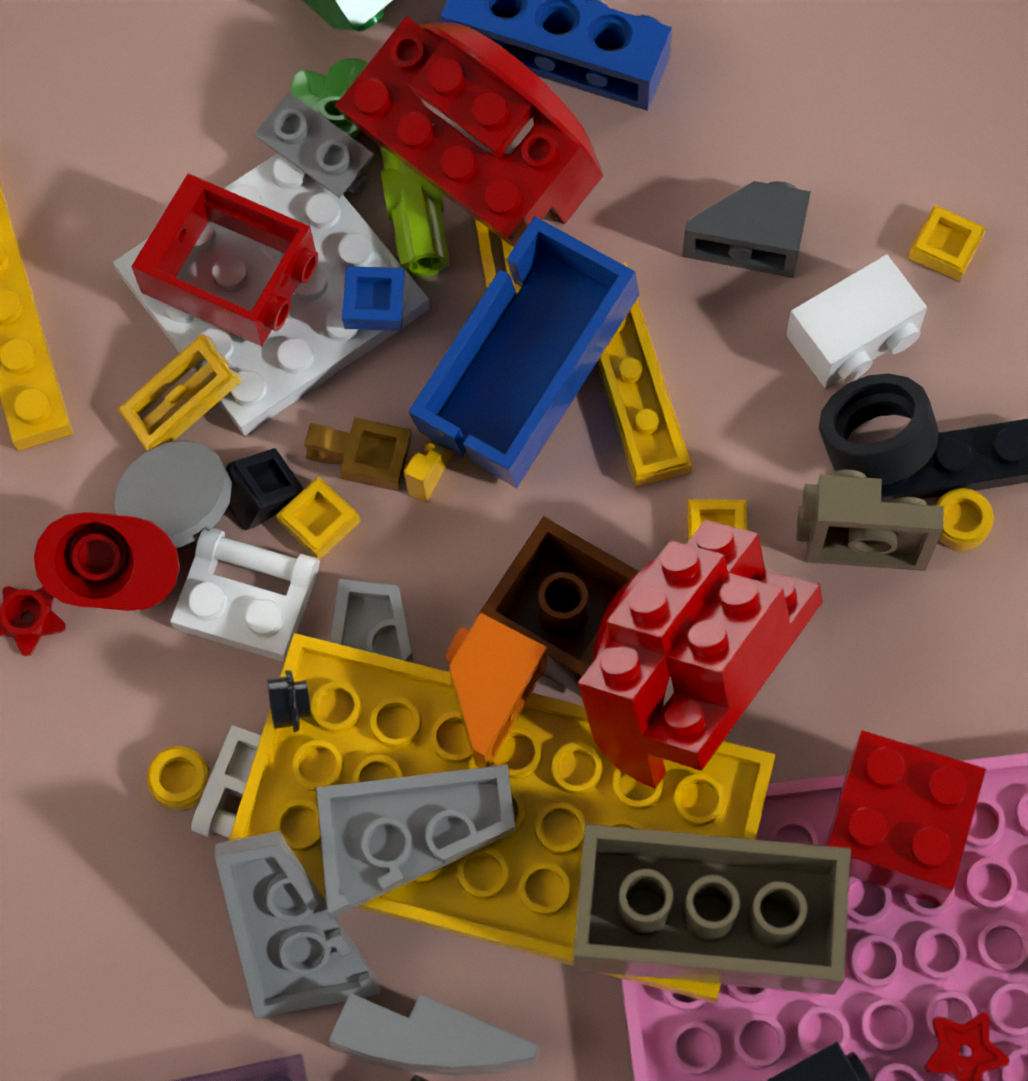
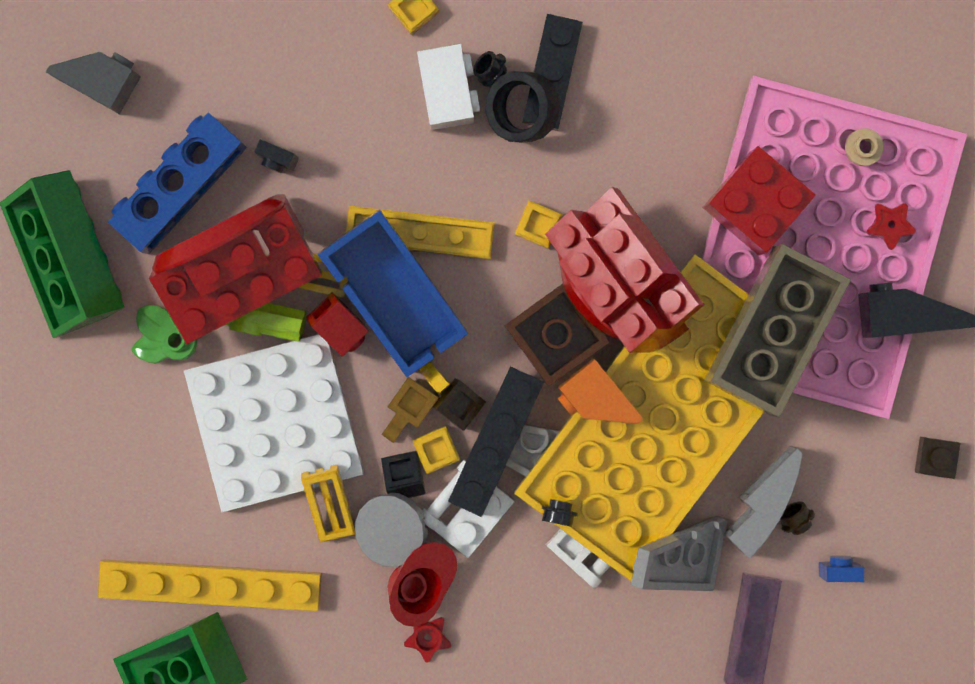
camera: 75 degrees left, 20 degrees up
(178, 778) = (560, 584): yellow tile -> none
(179, 230) = (231, 472): red window -> none
(316, 146) = (196, 363): light grey hinge -> none
(363, 584) = (495, 441): none -> black plate
(373, 298) = (319, 367): blue plate -> none
(399, 518) = (459, 404): none -> dark brown plate
(407, 827) = (658, 477): light grey wing -> none
(443, 304) = (337, 325): none -> red brick
(649, 141) = (275, 157): none -> black plate
(751, 229) = (360, 118): dark grey slope -> none
(852, 527) = (573, 149): dark tan plate -> none
(917, 366) = (489, 68): none -> black plate
(965, 519) = (589, 82): yellow tile -> none

